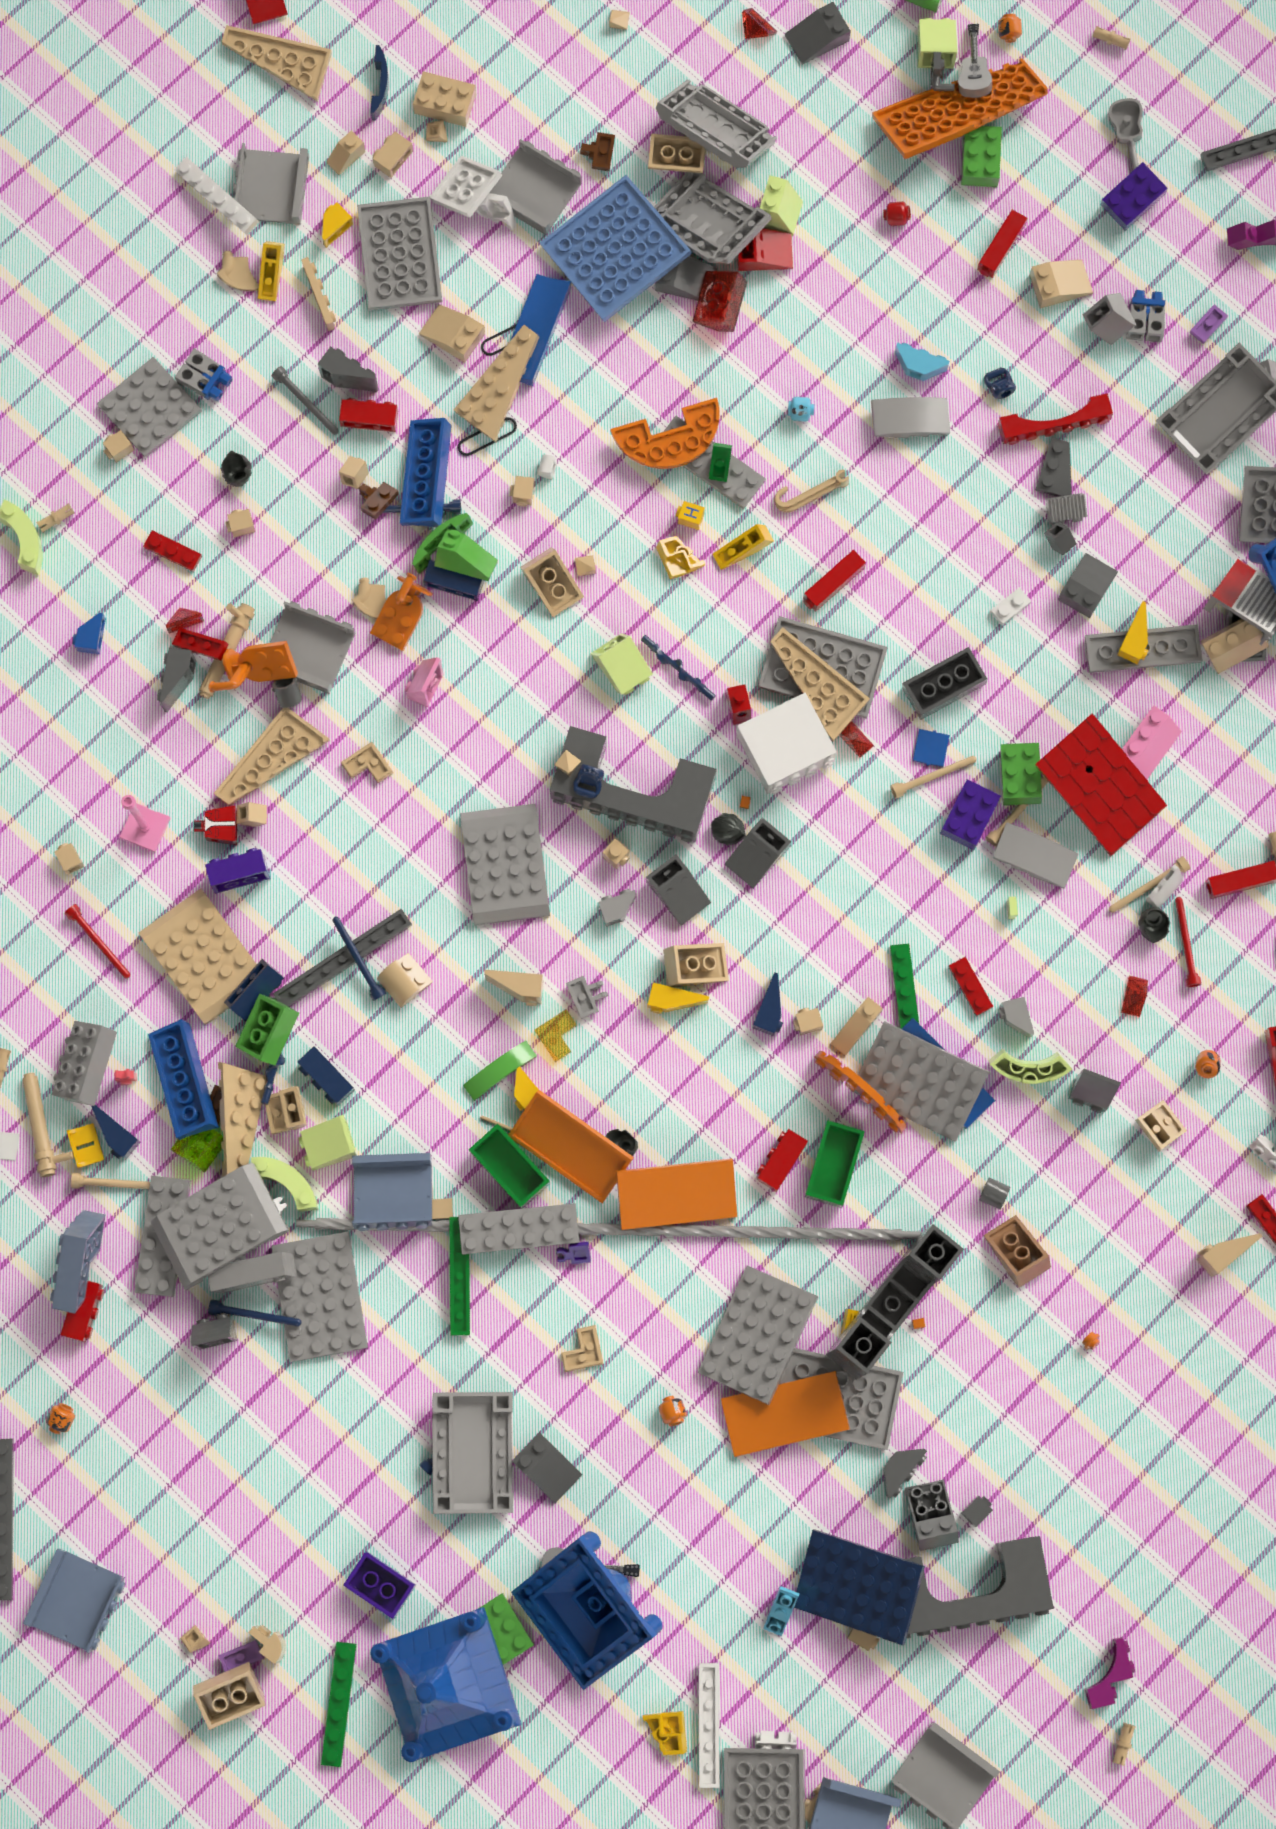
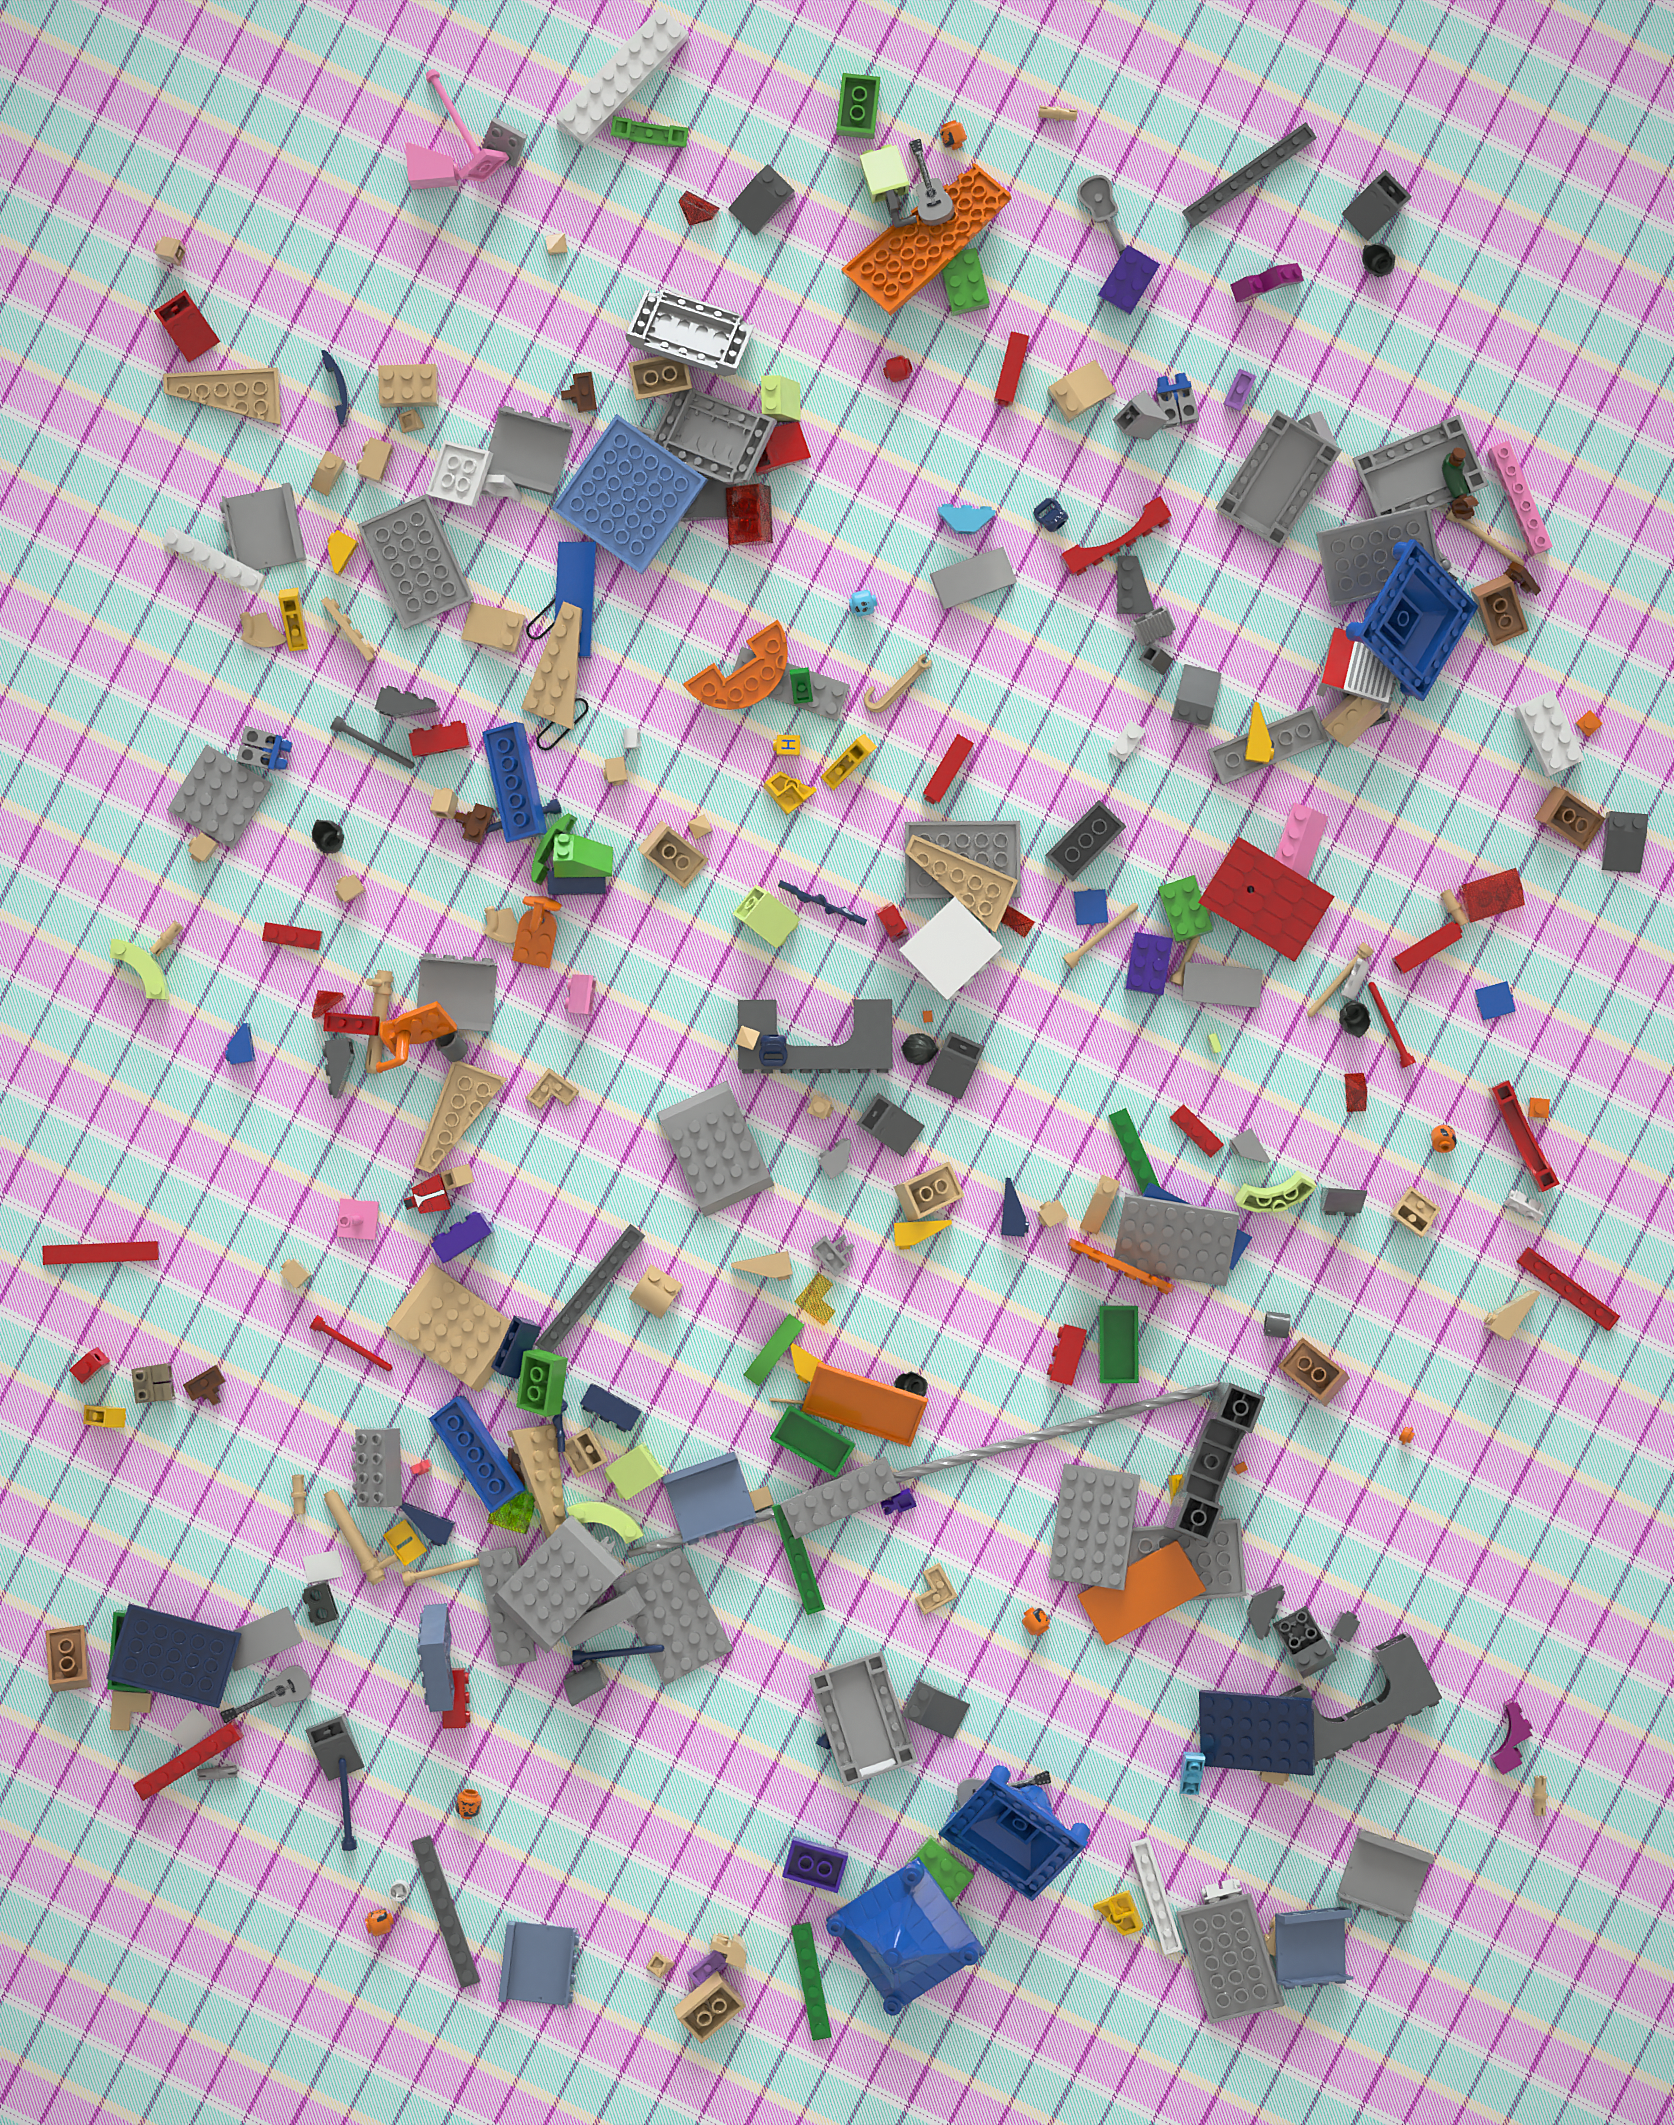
camera: 15 degrees left, 10 degrees up
(375, 990) = (633, 1311): dark blue piece -> none
(676, 1194) = (978, 1418): orange tile -> none

